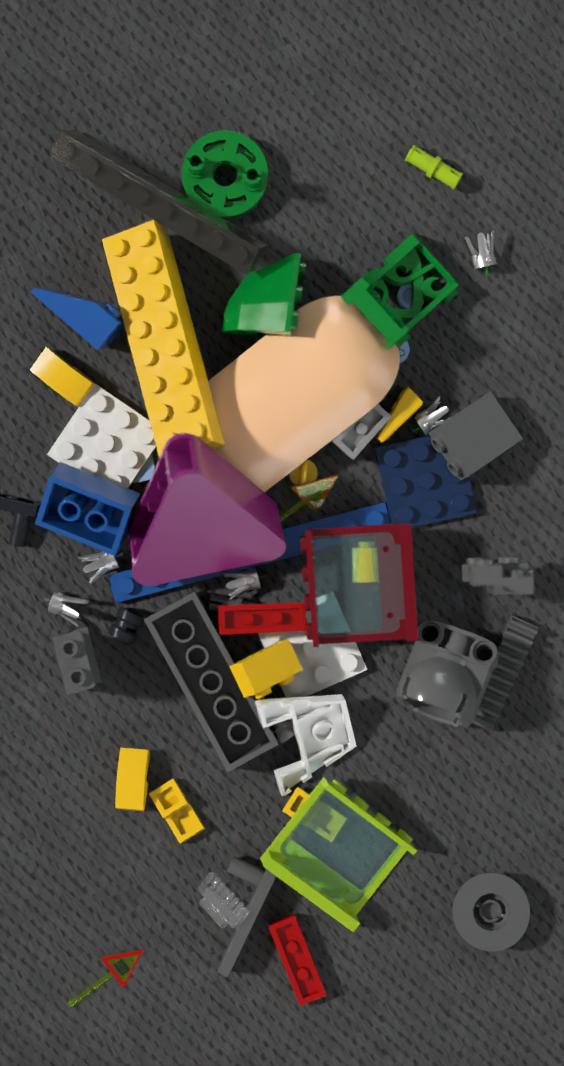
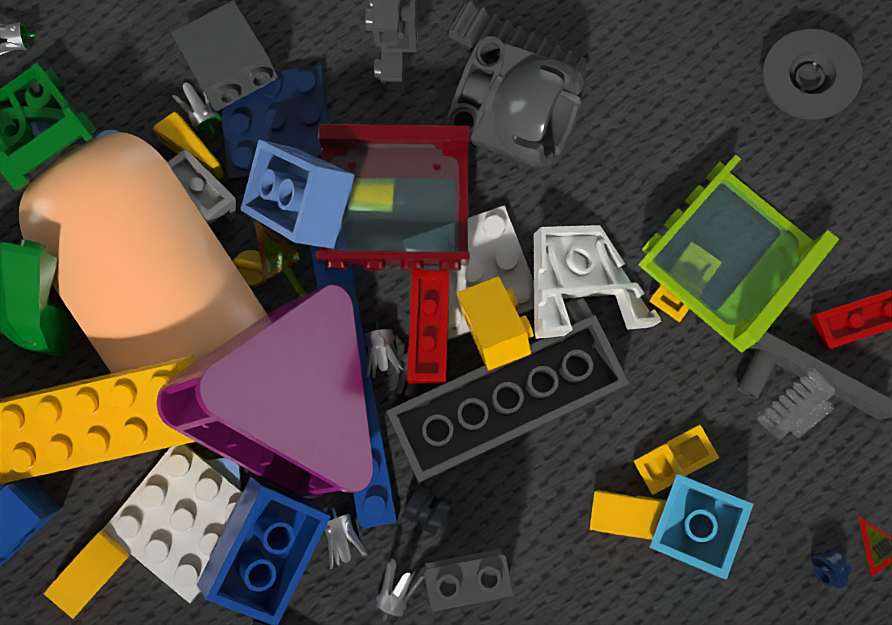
camera: 85 degrees left, 10 degrees down
(103, 927) = (831, 568): none -> dark blue plate
(126, 828) = (701, 526): none -> medium azure slope
(356, 509) = (297, 194): none -> medium blue brick

